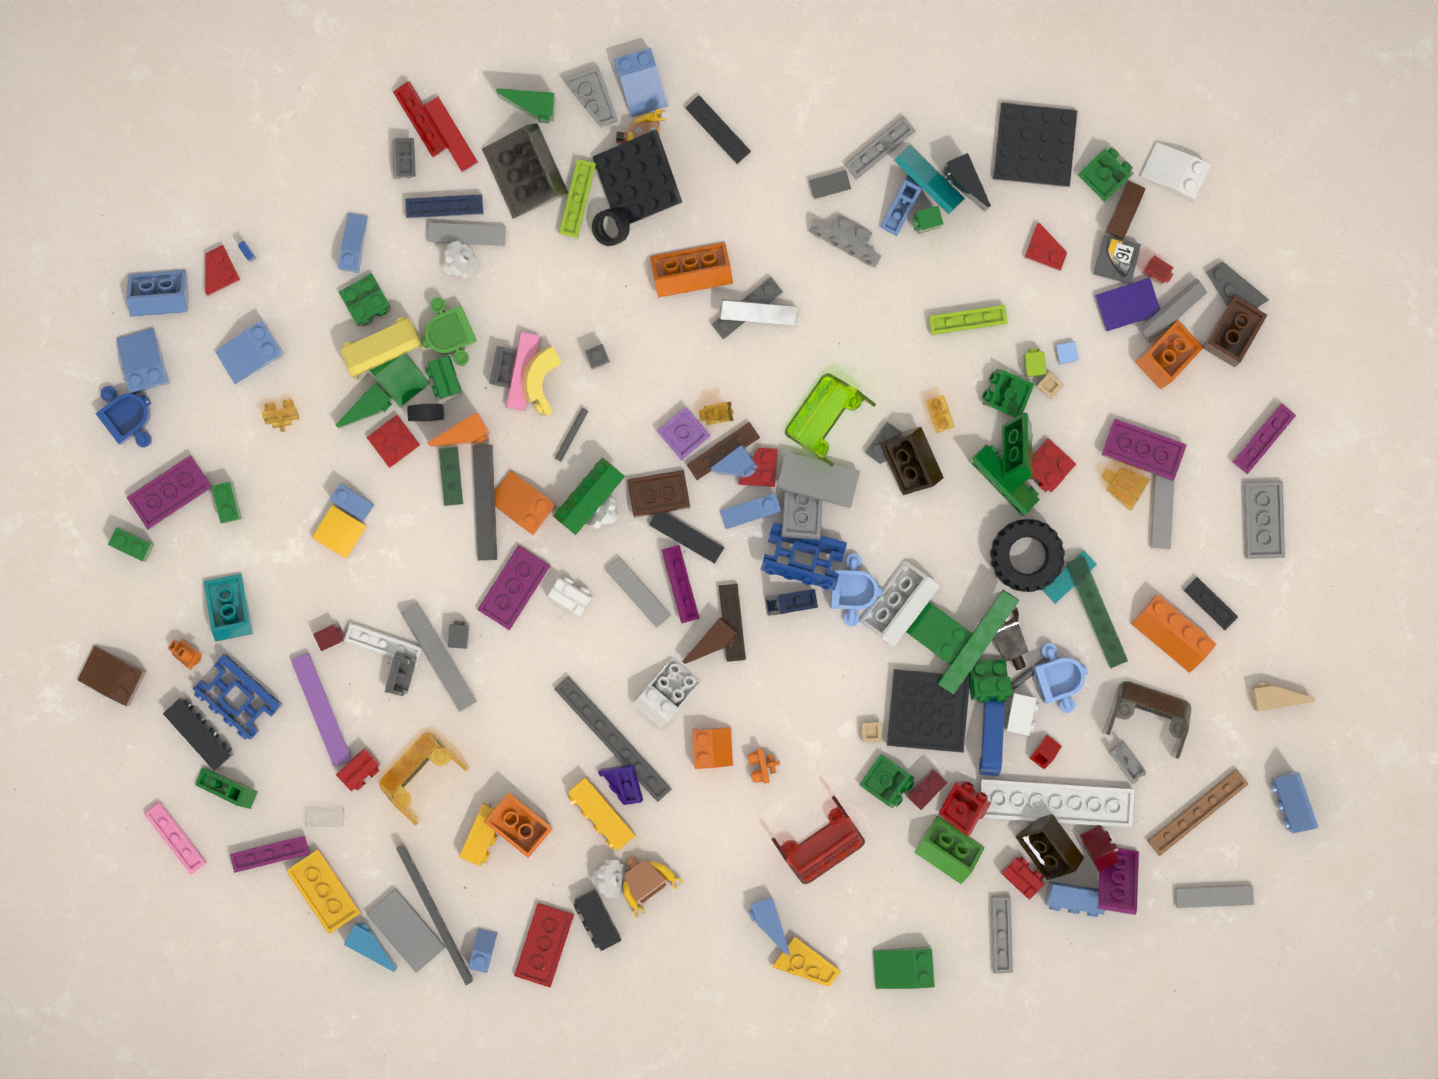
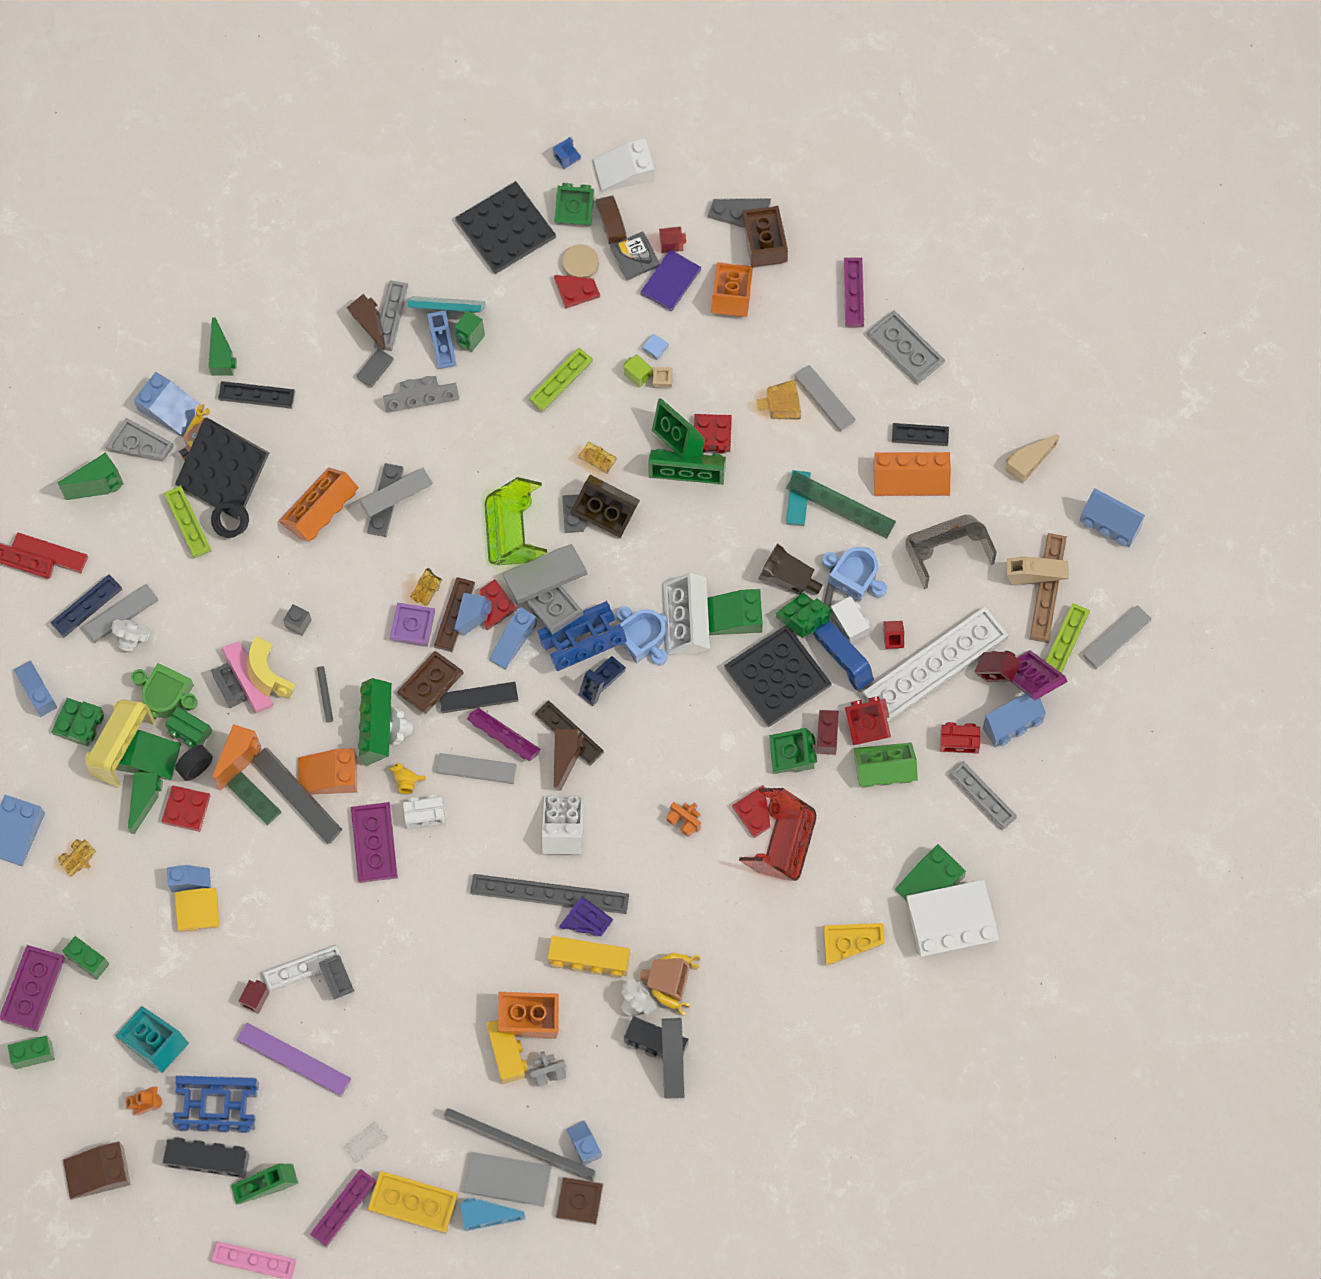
camera: 35 degrees left, 20 degrees down
(358, 769) = (362, 1080): red brick -> none
(403, 158) = (25, 594): dark grey hinge -> none
(425, 748) = (402, 1068): clear yellow windscreen -> none
(438, 657) = (356, 941): light grey tile -> none
(445, 990) = (579, 1200): none -> reddish brown tile
(458, 635) = (359, 911): dark grey brick -> none
(500, 872) = (539, 1072): none -> light grey hips
(525, 170) = (129, 532): clear smoke slope -> none
(544, 945) = (630, 1098): red tile -> none
(577, 557) = (405, 778): none -> yellow animal
(596, 948) = (673, 1057): none -> dark grey slope
(712, 748) = (633, 836): orange slope -> none
(716, 72) = (220, 356): none -> green slope
(769, 922) = (794, 930): medium blue slope -> none
(819, 803) = (753, 812): none -> red wing
(858, 138) = (368, 317): none -> reddish brown slope
(871, 732) = (747, 725): tan plate -> none
(893, 1013) = (952, 918): none -> white slope
(965, 178) = (476, 284): black slope -> none
(978, 641) = (769, 589): green tile -> none
(1007, 393) = (634, 405): green plate -> none
(1050, 847) = (960, 697): dark brown slope -> none
(1053, 555) = (752, 481): black tyre -> none
(1069, 227) = (580, 261): none -> tan tile
(1127, 762) = (961, 593): light grey hinge -> none
(1138, 120) = (566, 153): none -> blue panel
(1144, 449) = (772, 365): magenta plate -> none
(1173, 310) = (707, 257): light grey tile -> none
(1173, 867) = (1067, 637): none -> lime plate
(1199, 796) = (1033, 570): none -> tan slope

